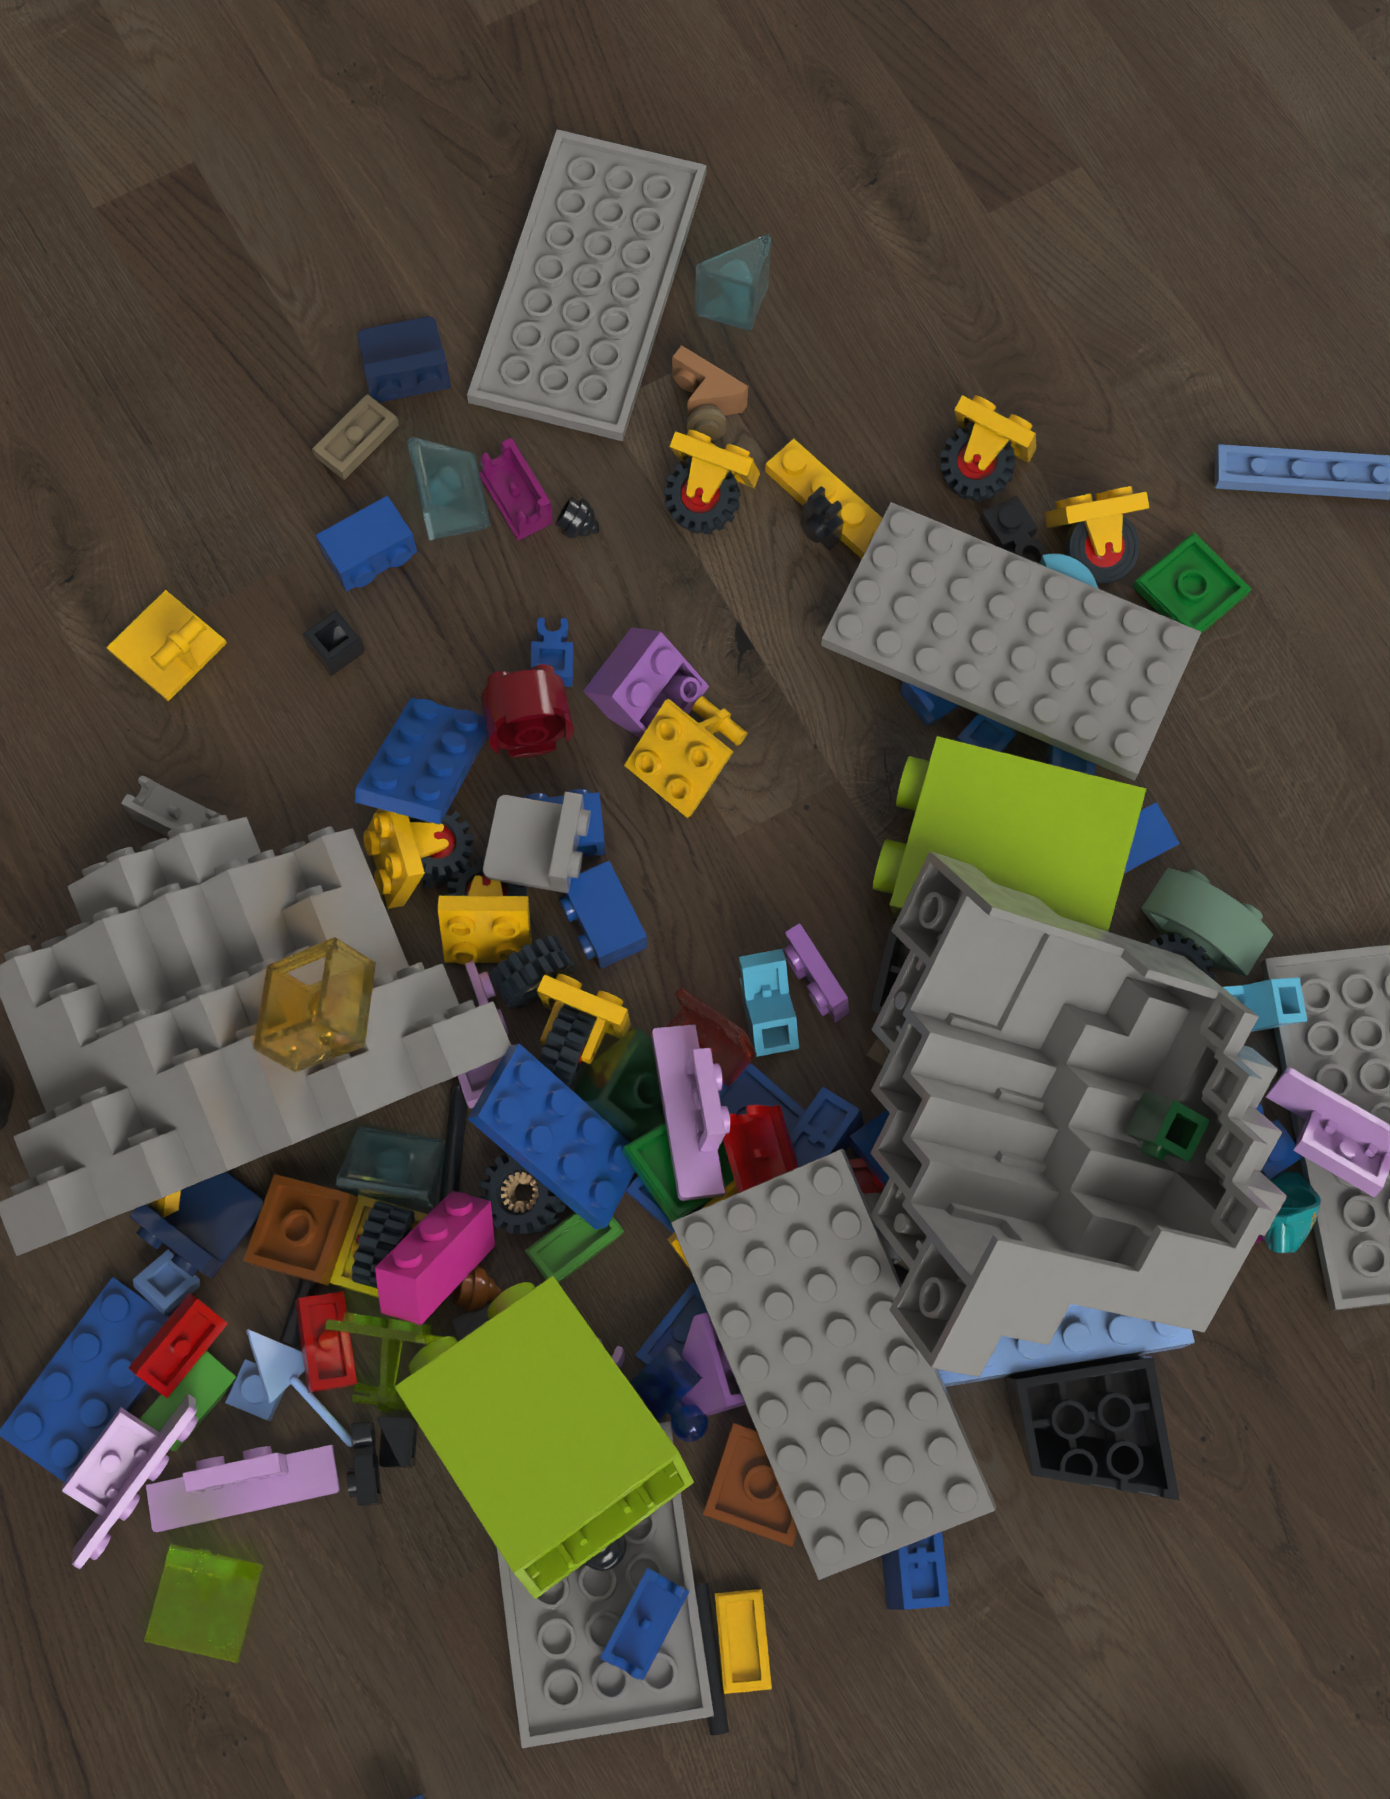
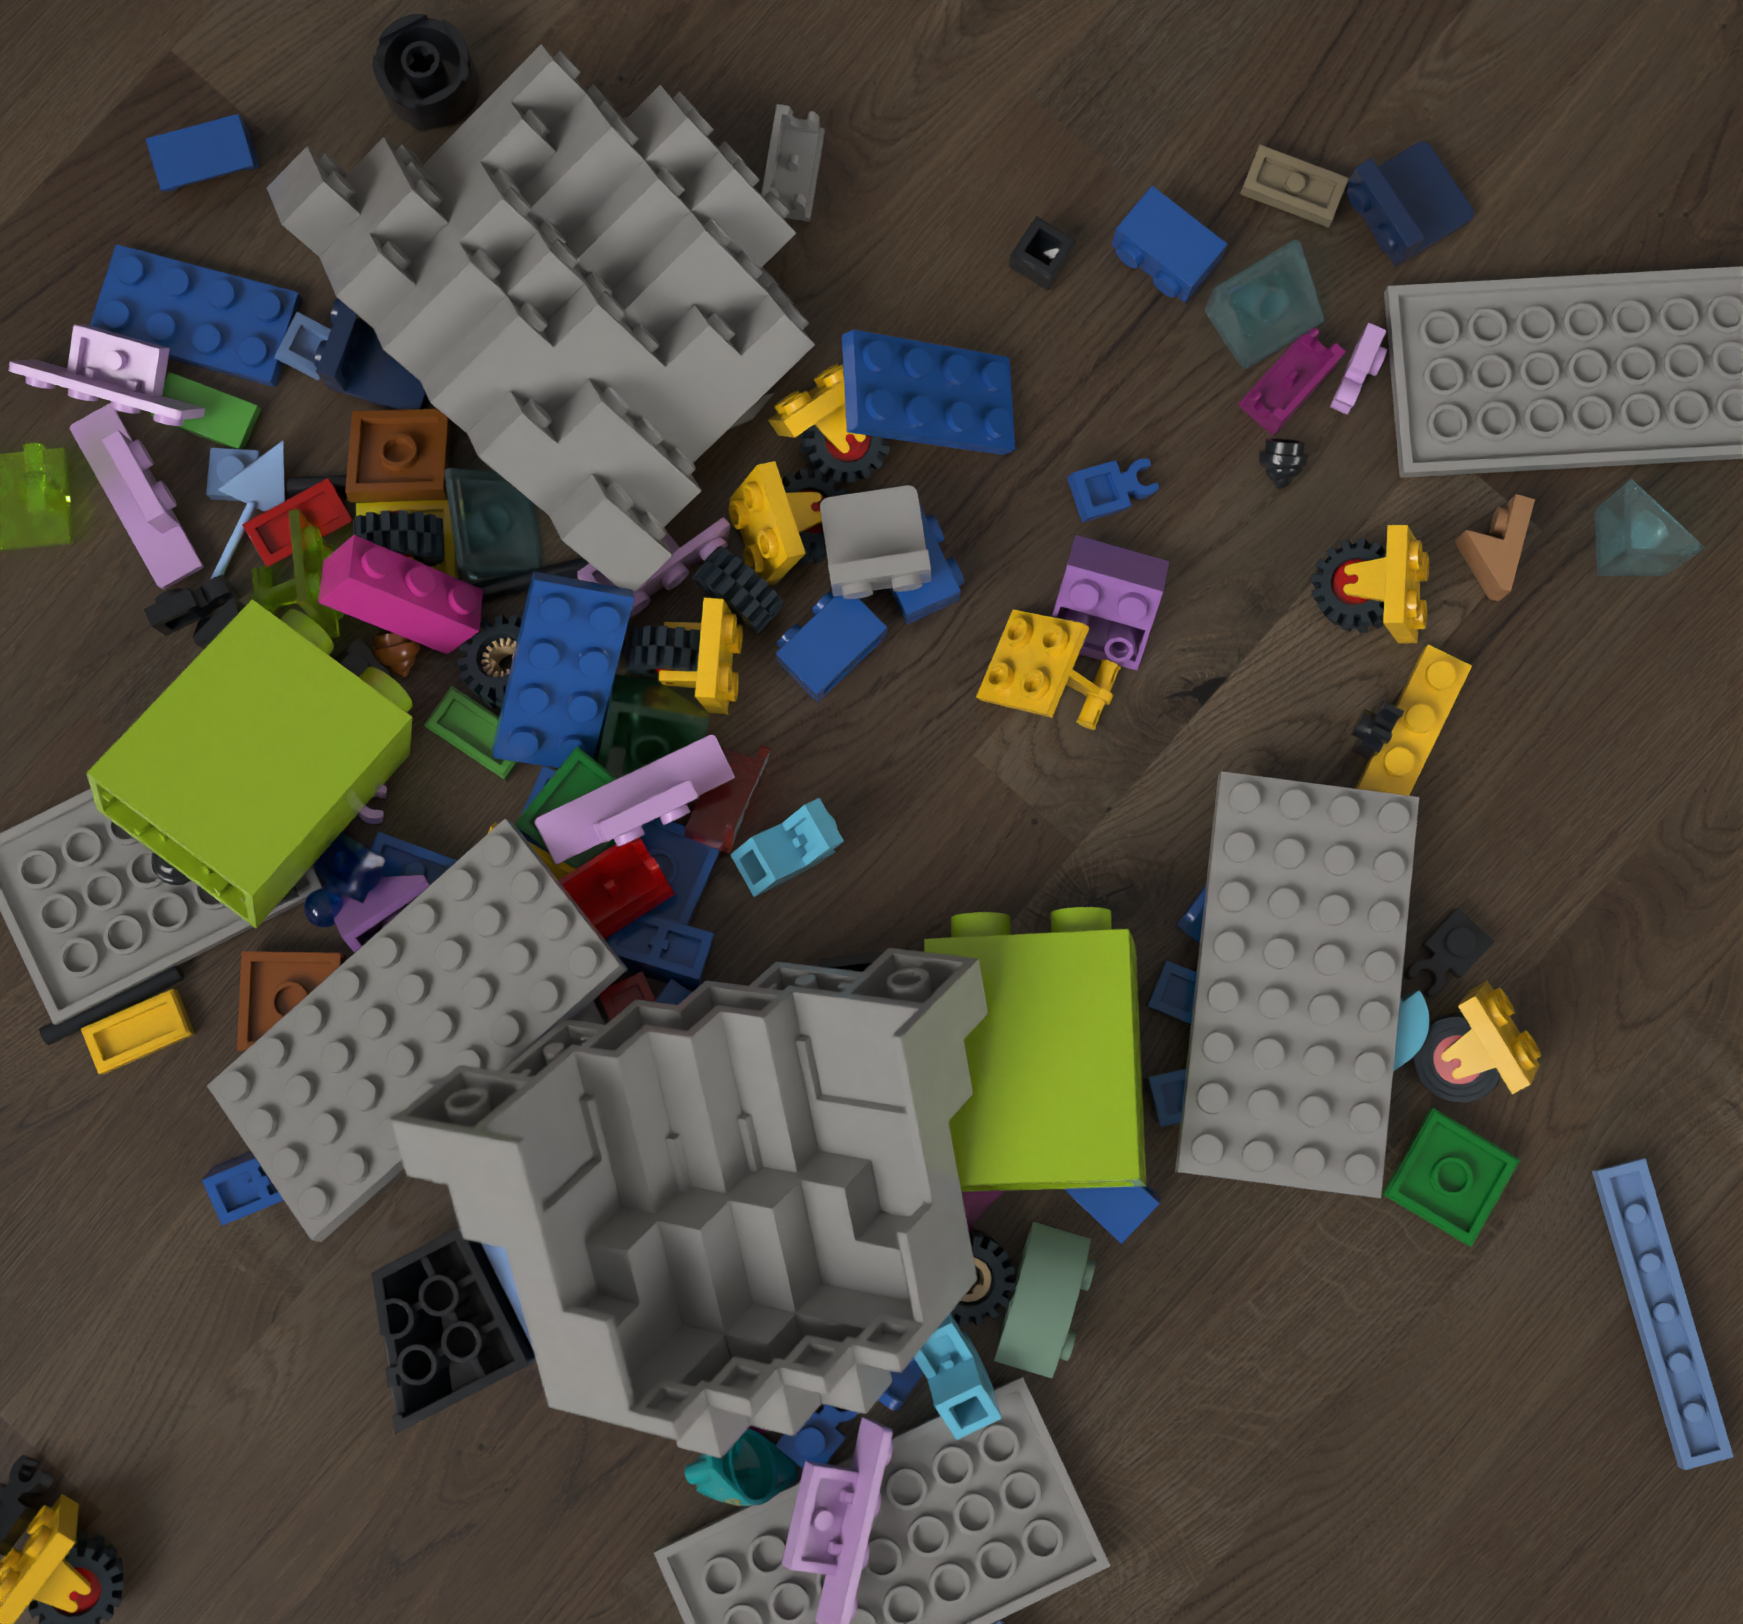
camera: 75 degrees right, 10 degrees up
(166, 645) = (979, 83): yellow plate -> none
(178, 1345) = (246, 380): red plate -> none
(317, 1021) = (563, 368): clear yellow piece -> none
(522, 431) = (1364, 360): none -> lavender plate
(526, 711) = (1027, 482): dark red brick -> none
(644, 1624) = (114, 926): blue hinge -> none
(707, 420) = (1453, 562): dark tan plate -> none
(807, 962) = (846, 872): medium lavender plate -> none
(983, 454) = (1524, 884): plate -> none
(1166, 1127) = (757, 1307): dark green brick -> none

